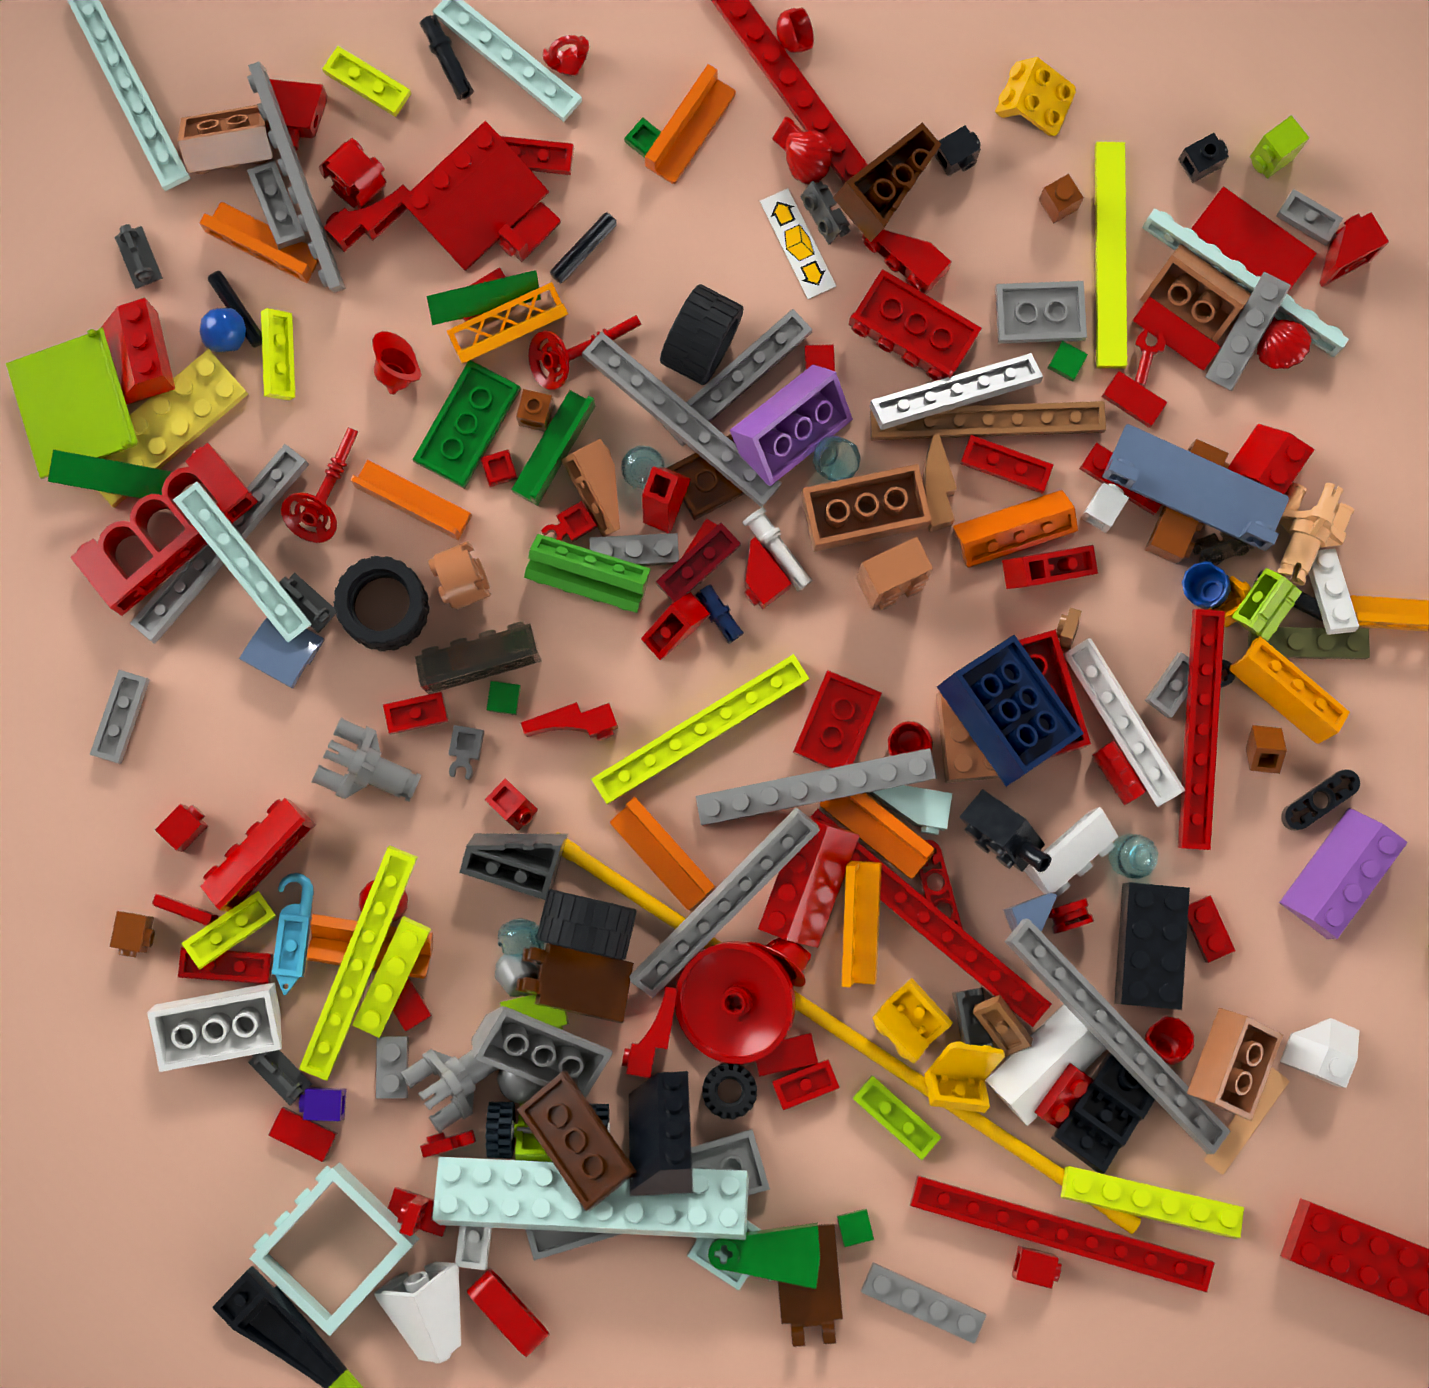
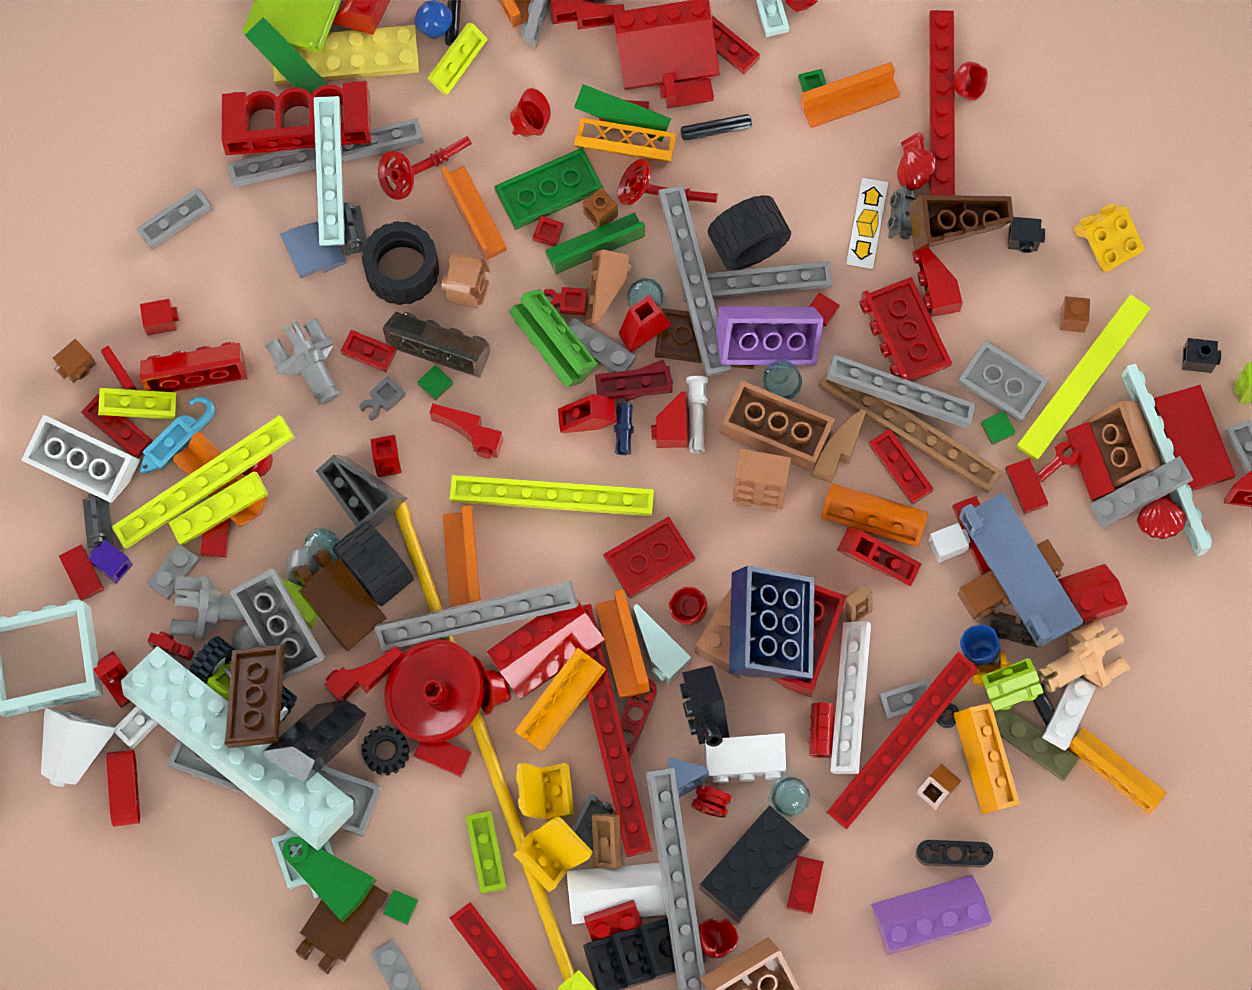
camera: 40 degrees right, 10 degrees down
(805, 1084) = (440, 784): red plate -> none
(816, 787) = (600, 586): light grey plate -> none

